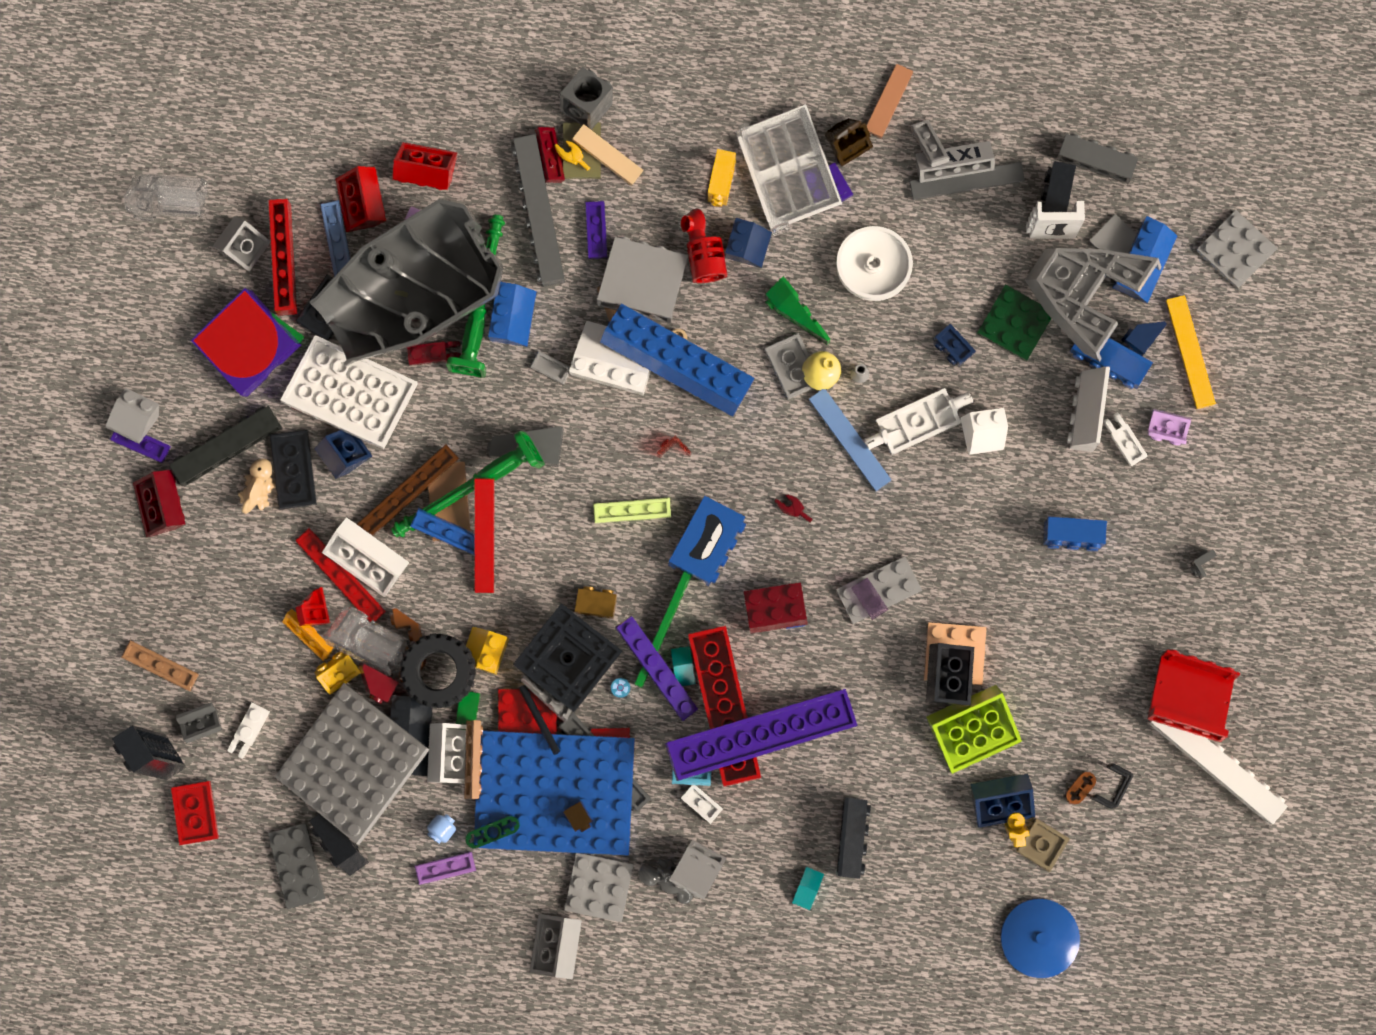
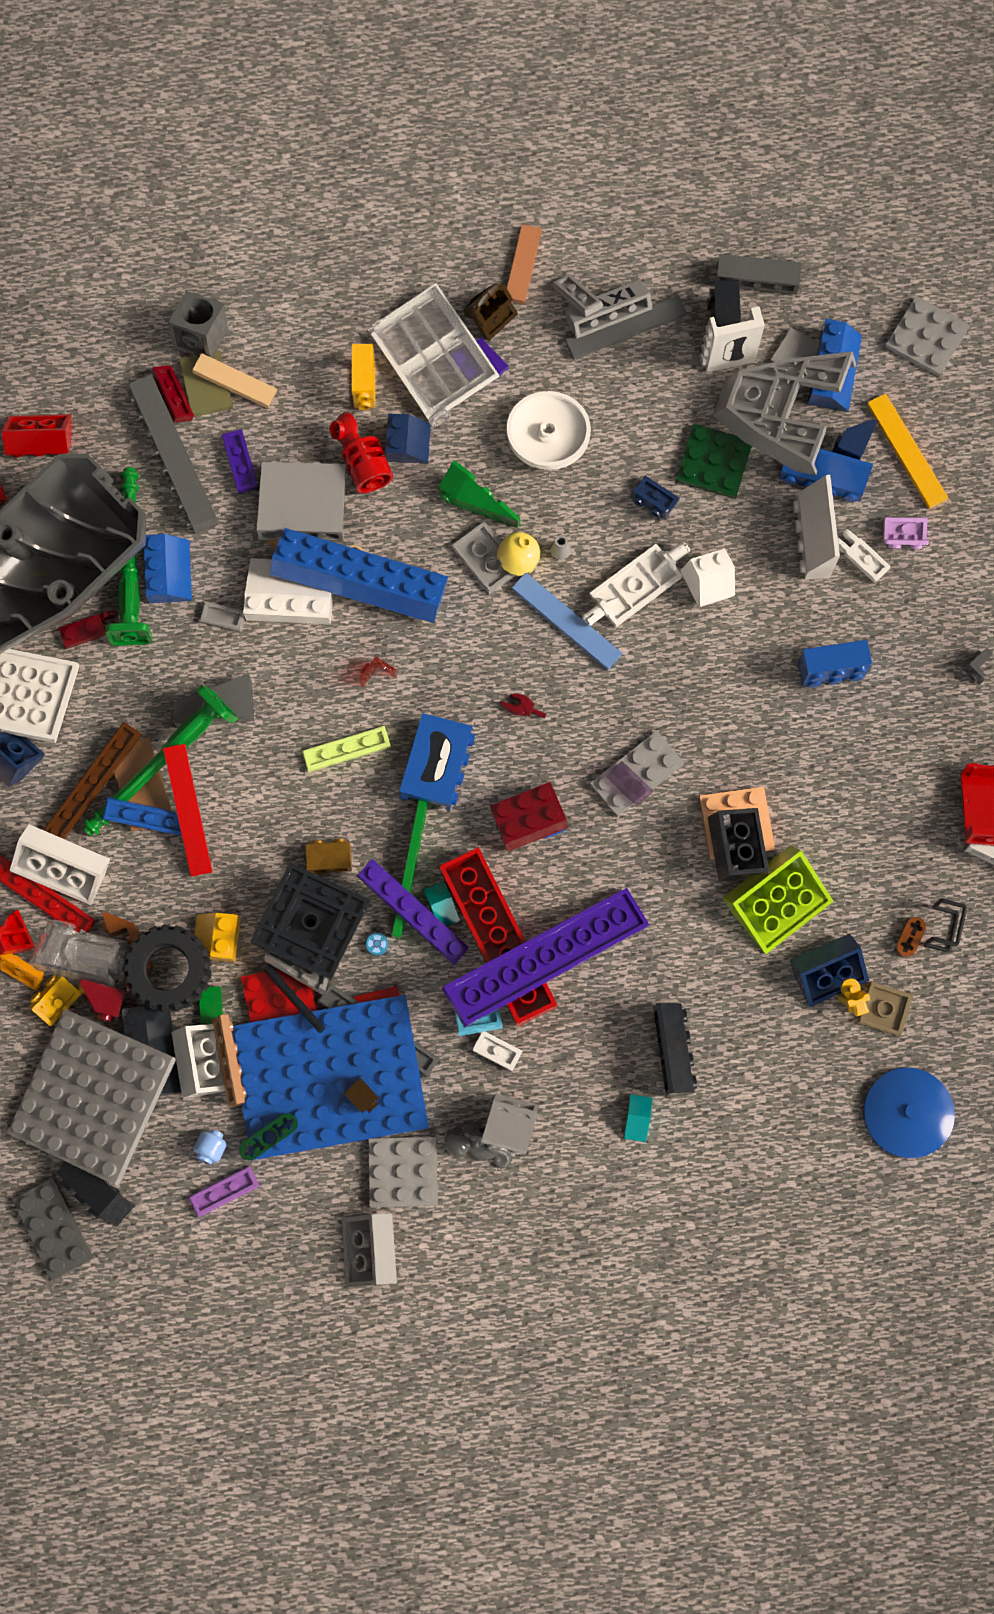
camera: 20 degrees left, 5 degrees down
(574, 156) = (198, 389): yellow hand -> none

